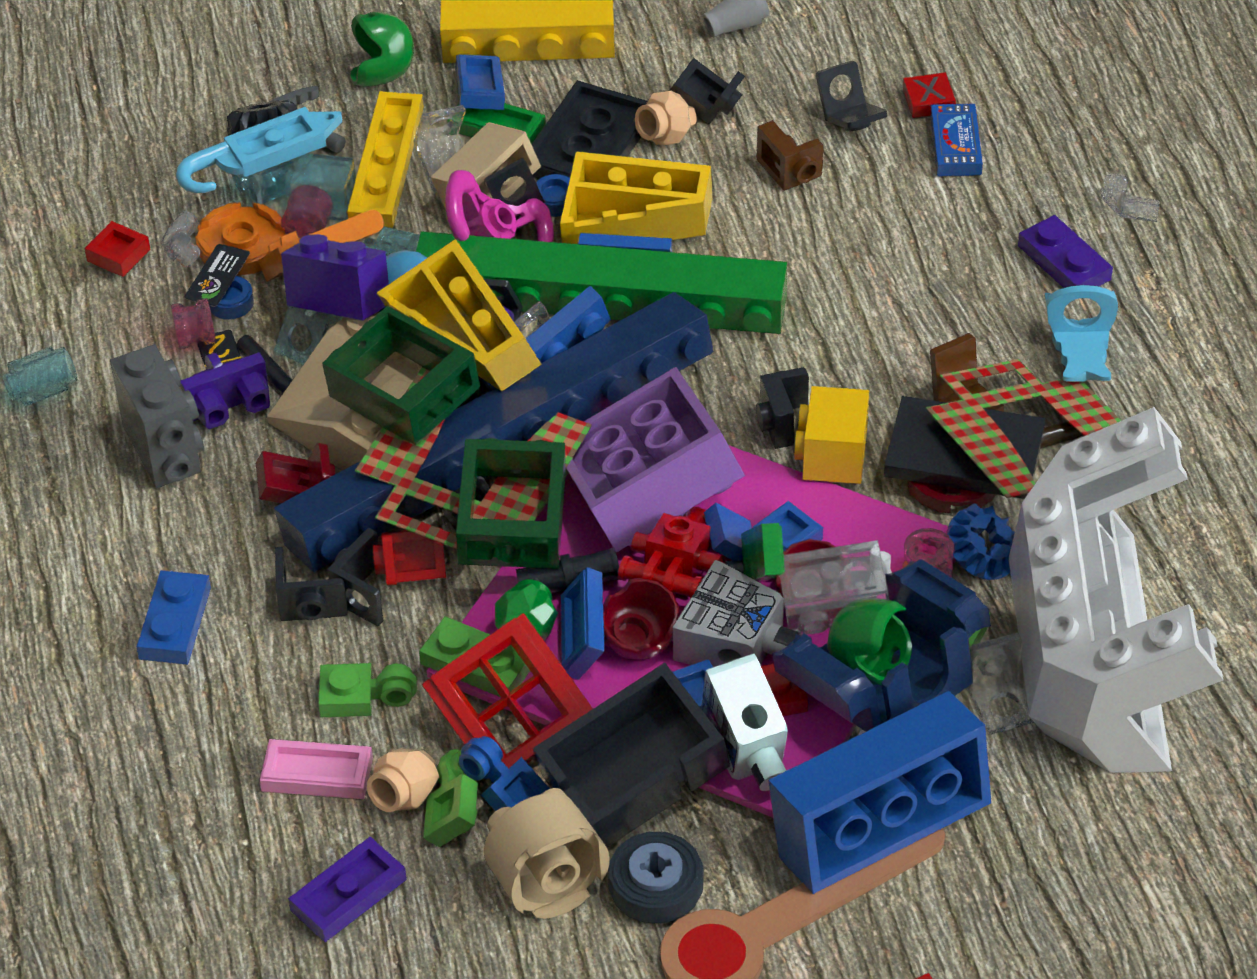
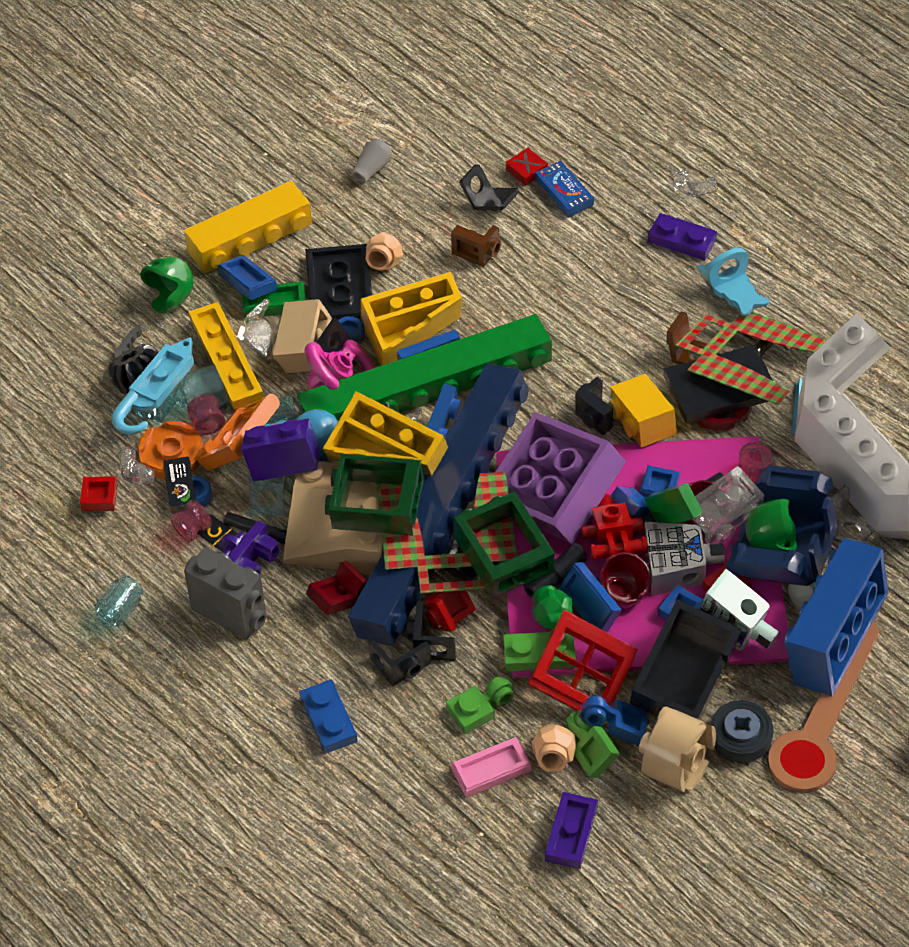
camera: 30 degrees left, 5 degrees up
(707, 91) = (394, 221): black bracket -> none
(970, 547) = (781, 448): blue gear -> none

